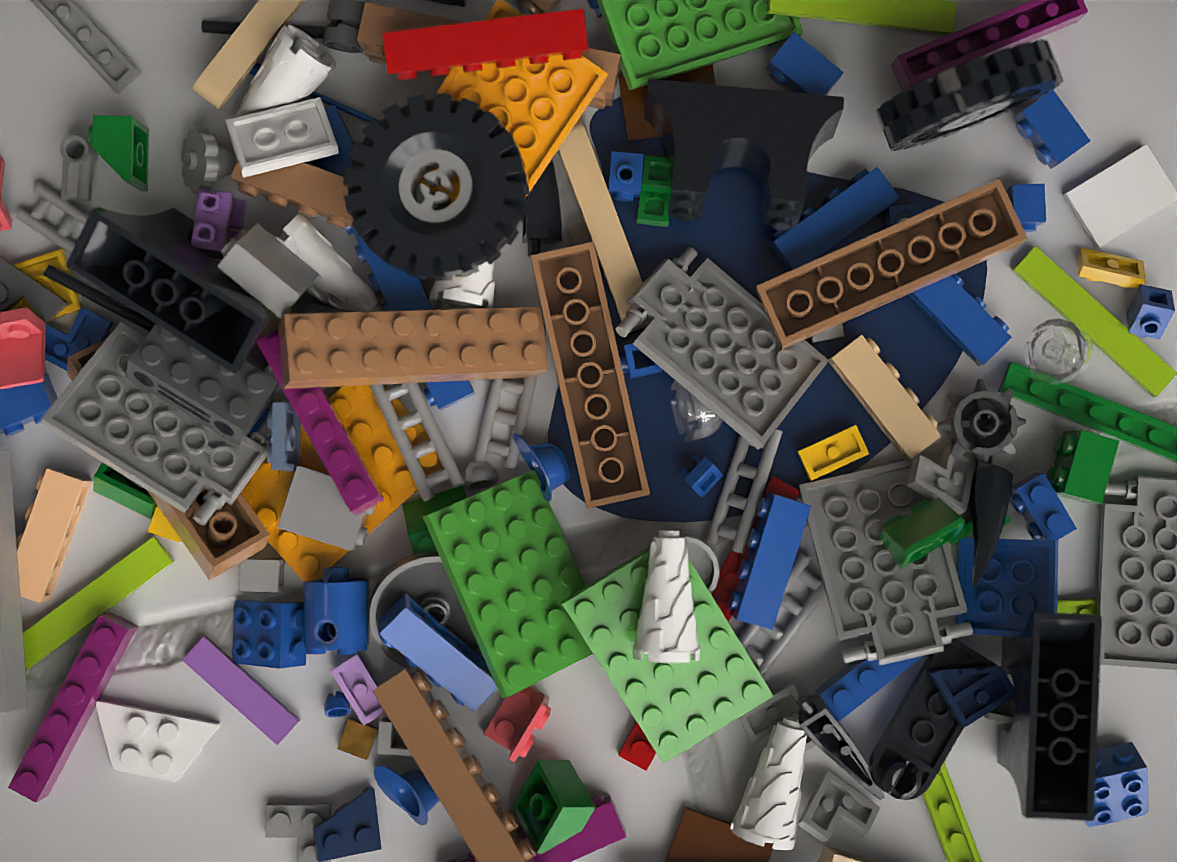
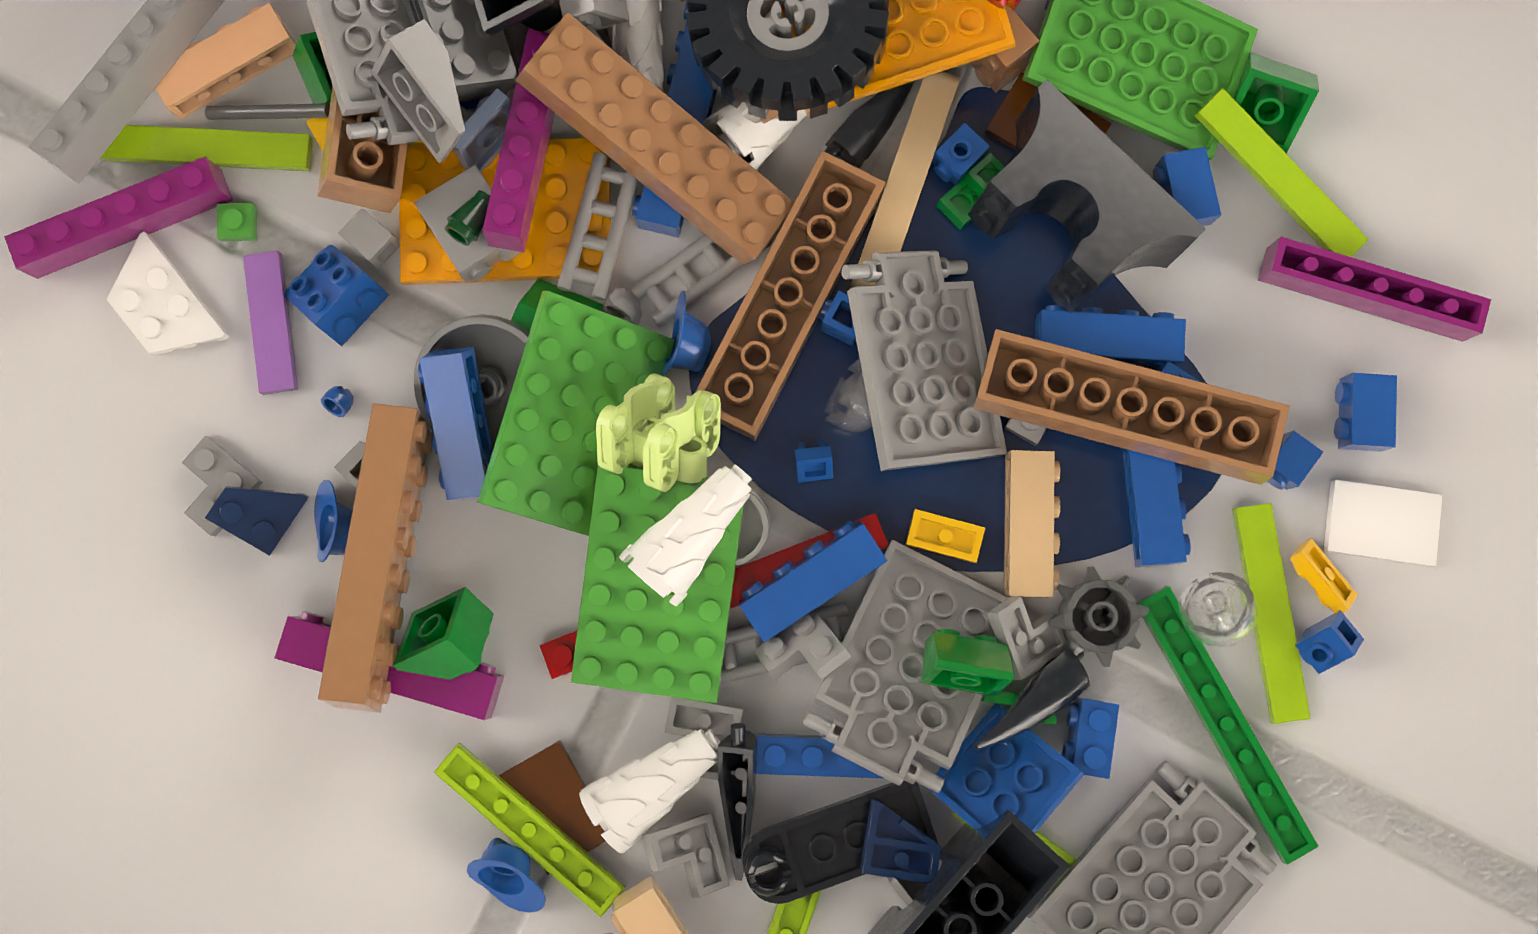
camera: 40 degrees right, 5 degrees down
(113, 545) = (272, 111): none -> dark grey bar
(155, 640) = (236, 222): none -> bright green plate
(227, 448) = (421, 84): none -> light grey slope
(329, 507) = (468, 220): none -> dark green cone
(336, 613) = (402, 318): blue cylinder -> none
(357, 685) = (369, 387): lavender plate -> none
(358, 738) = (330, 444): pearl gold tile -> none
(517, 719) = (480, 539): coral bracket -> none
(584, 558) = (658, 438): none -> yellowish green piece
(750, 504) = (834, 519): light grey bar -> none
(801, 602) = (803, 639): none -> light grey plate
(969, 94) = (1322, 310): black wheel -> none
(1082, 465) = (1159, 727): green brick -> none

